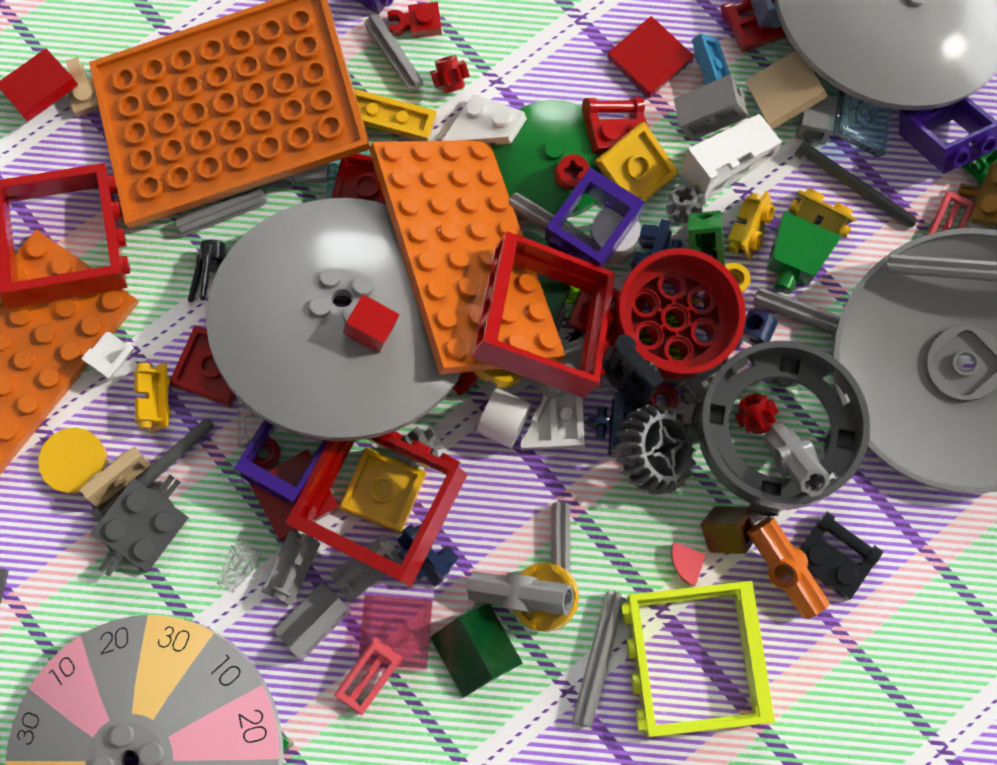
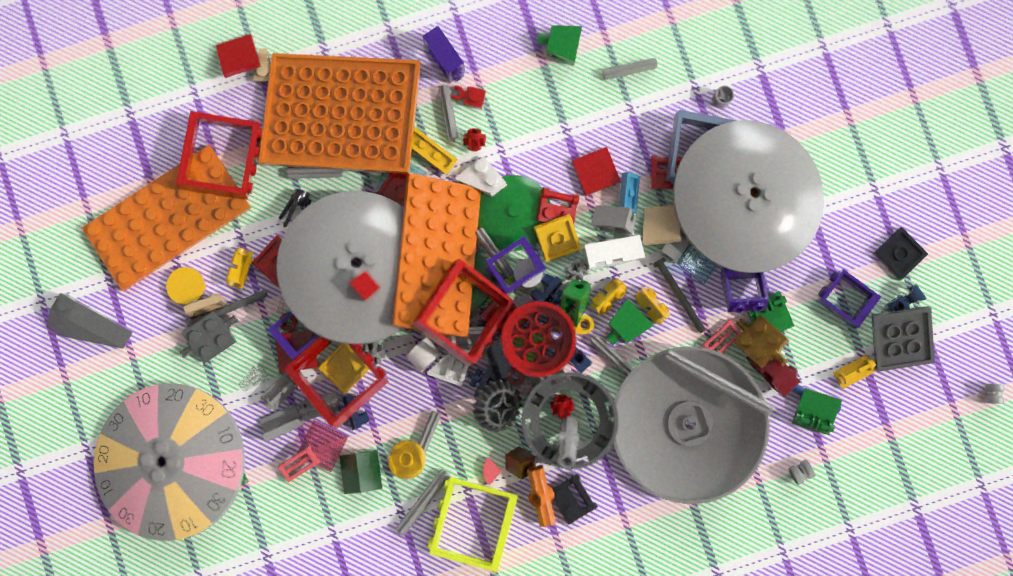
camera: 25 degrees right, 10 degrees up
(108, 355) = (224, 234): white panel -> none
(520, 592) = (393, 453): light grey piece -> none
(566, 176) = (514, 224): red wheel -> none

